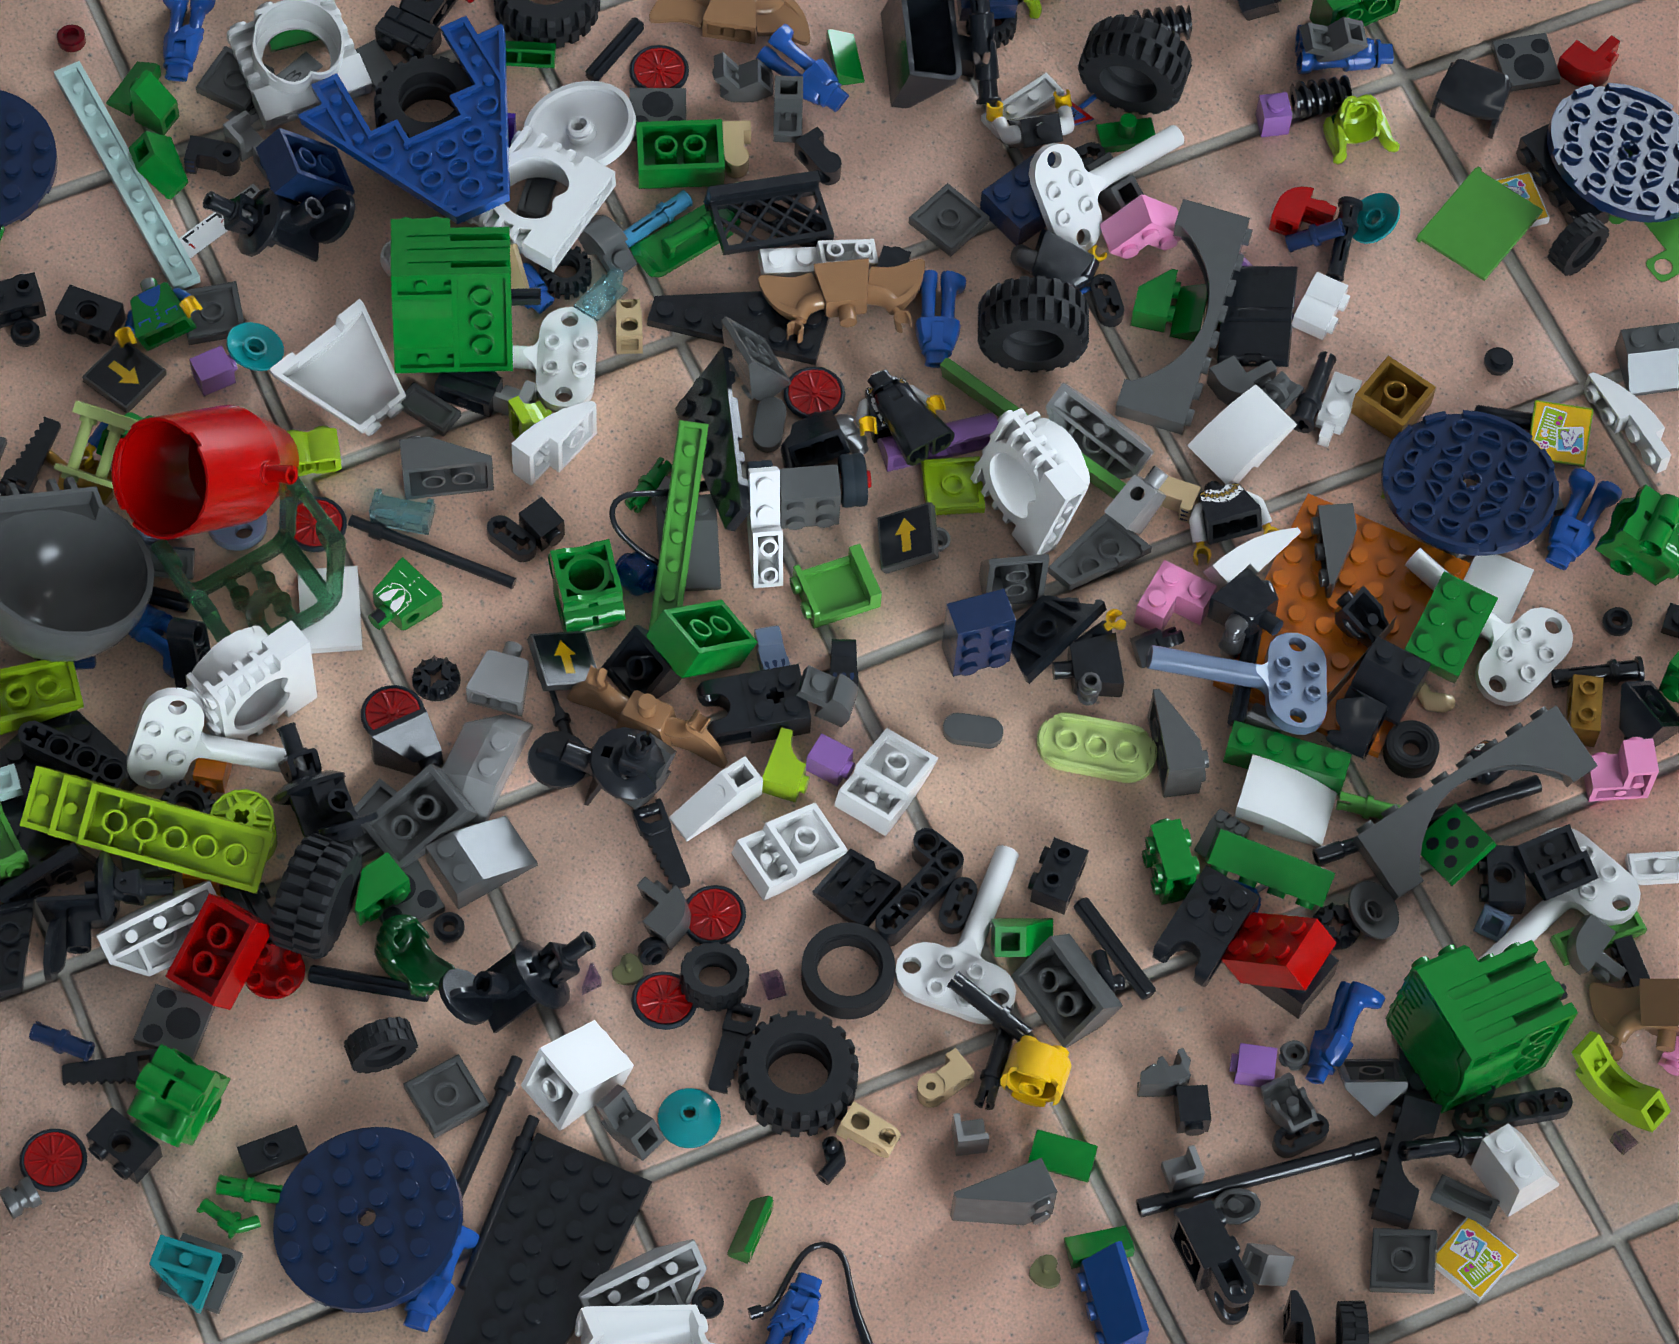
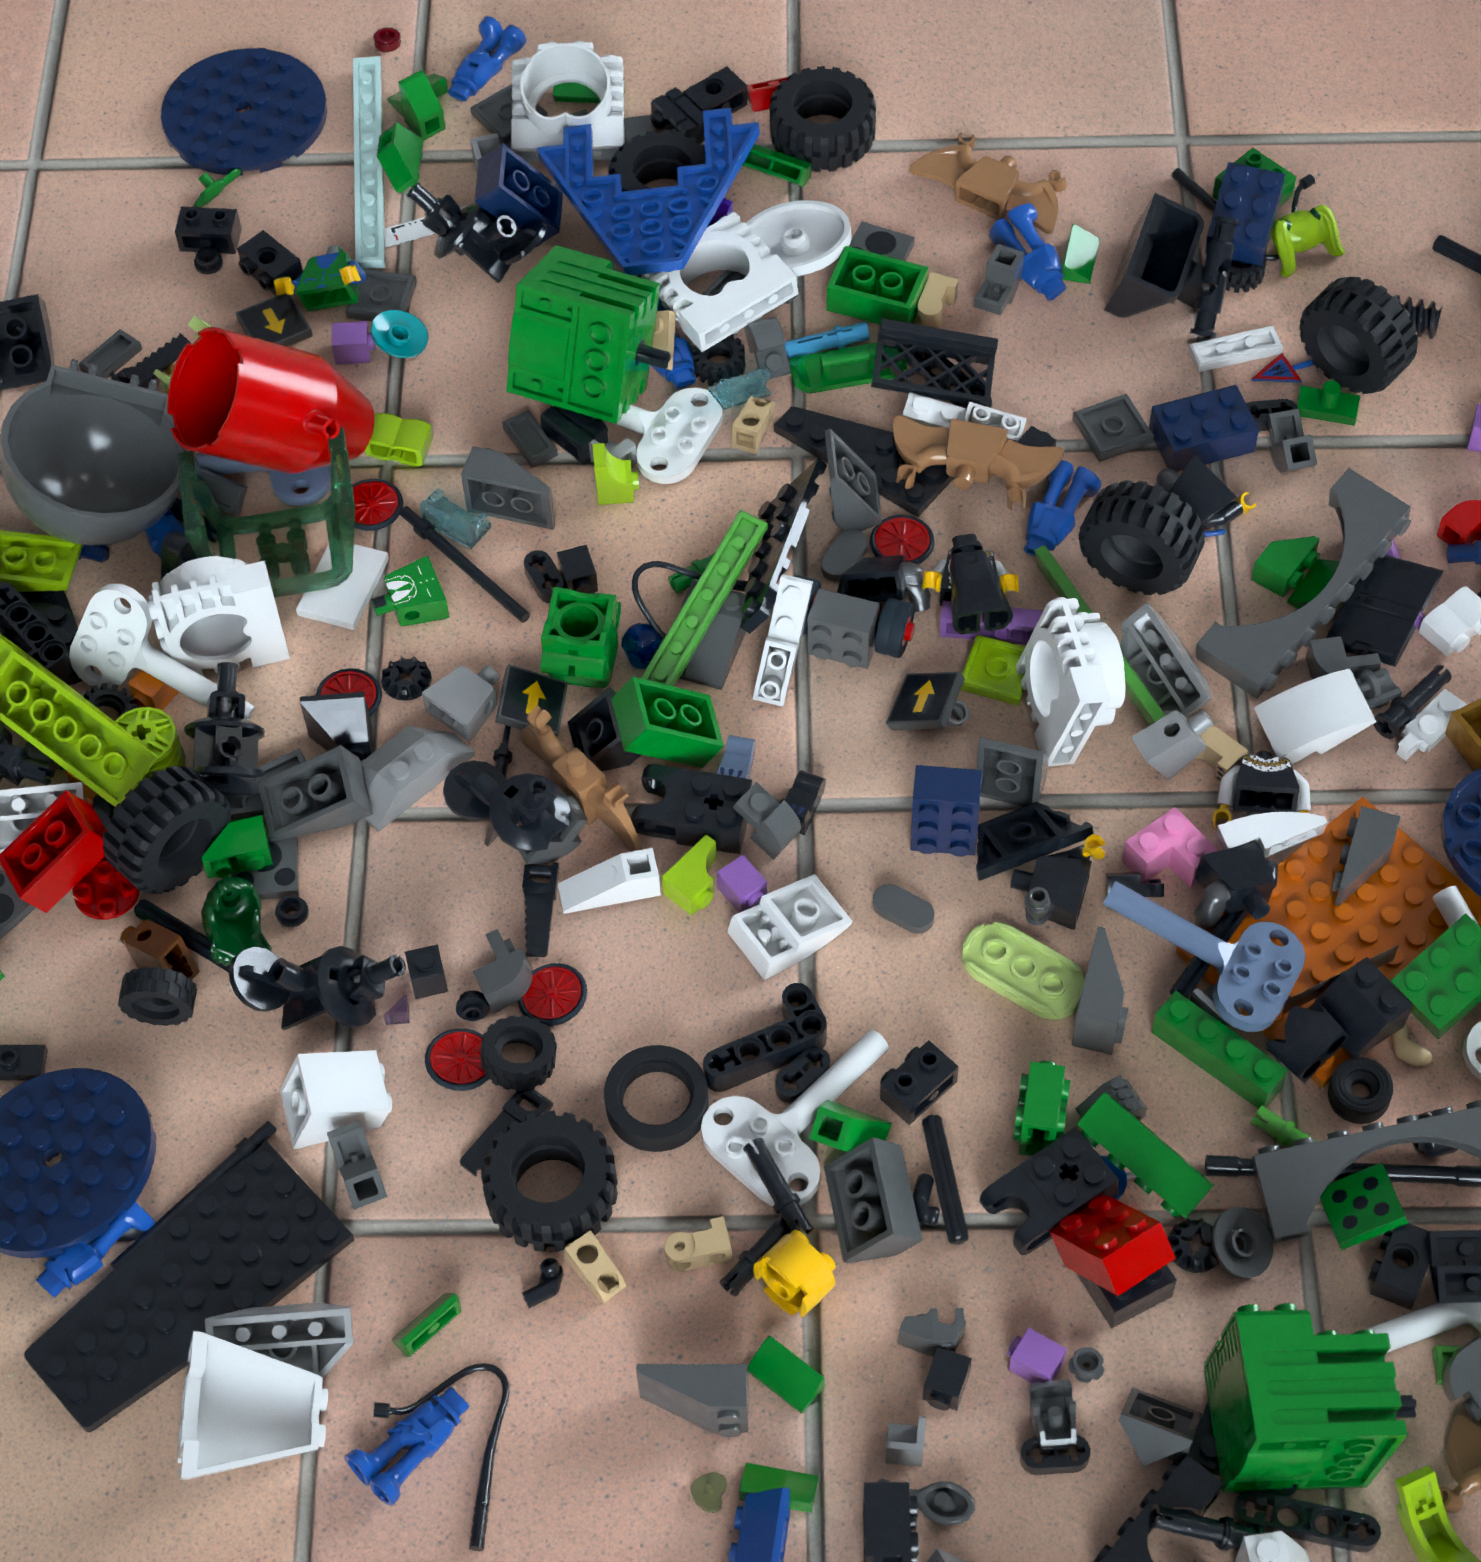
camera: 30 degrees right, 5 degrees down
(211, 155) = (450, 165): black leg -> none
(346, 372) = (463, 380): white cone -> none
(354, 1004) = (152, 943): none -> reddish brown torso
(446, 1096) = (202, 1072): dark grey tile -> none
(478, 859) = (353, 857): dark grey slope -> none
(503, 1087) = (259, 1085): black bar -> none
(553, 441) = (625, 499): white slope -> none
(604, 933) = (426, 971): none -> black brick
(614, 49) = (866, 186): black axle -> none
(629, 971) = (442, 1017): olive piece -> none
(659, 68) = (900, 214): red wheel -> none
(687, 1131) = (427, 1199): teal dish -> none
(711, 1294) = (339, 1372): black plate -> none
(742, 82) = (967, 246): dark grey brick -> none
(773, 984) = (577, 1084): clear purple piece -> none
(788, 850) = (657, 958): white slope -> none
(815, 156) = (1007, 328): black leg -> none
(837, 588) = (831, 726): bright green panel -> none
(856, 889) = (706, 1019): black slope -> none
(969, 1136) = (696, 1314): light grey panel -> none
(1034, 129) = (1236, 368): torso -> none
(1070, 193) = (1238, 433): white piece -> none
(1098, 552) = (1113, 780): dark grey wing -> none
(1112, 299) = (1231, 547): black beam -> none
(1140, 224) = (1297, 485): bright pink brick -> none
(1285, 802) = (1197, 1095): white slope -> none
(1333, 1043) = (1133, 1367): blue piece -> none
(1352, 1152) = (1104, 1495): black piece -> none
(1360, 616) = (1359, 931): black hand -> none
(1493, 923) = (1372, 1306): sand blue slope -> none

